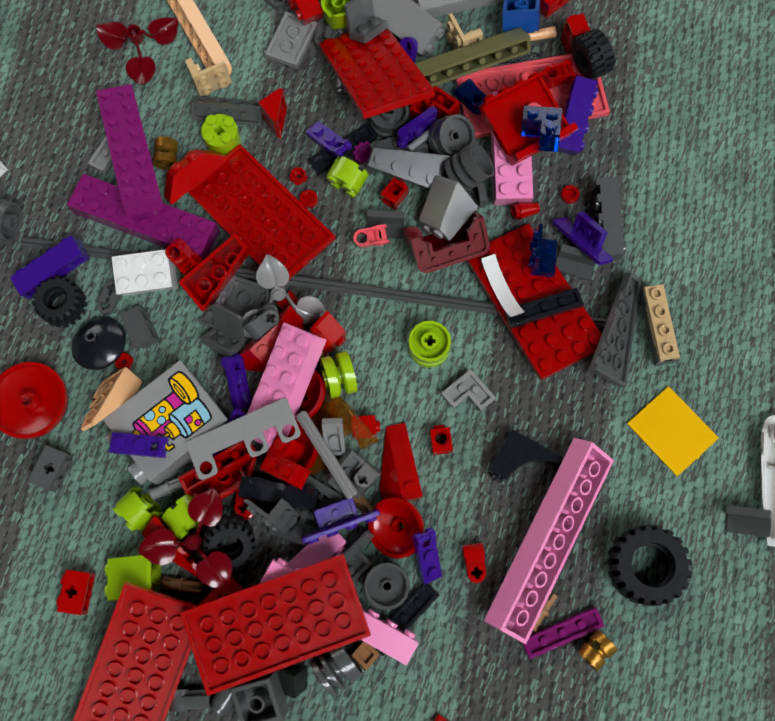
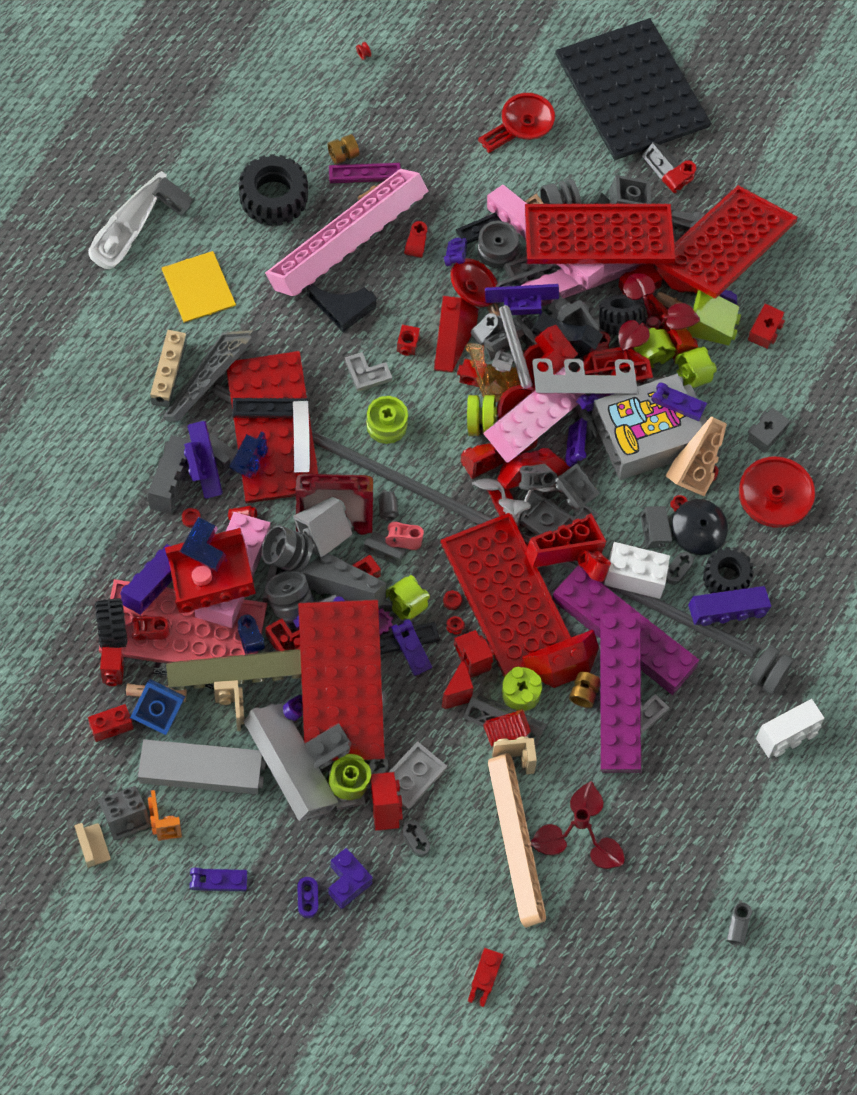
camera: 170 degrees left, 10 degrees down
(222, 93) = (507, 727): none -> red brick
(270, 149) = (474, 653): none -> red brick
(396, 262) = (388, 506): none -> dark grey brick

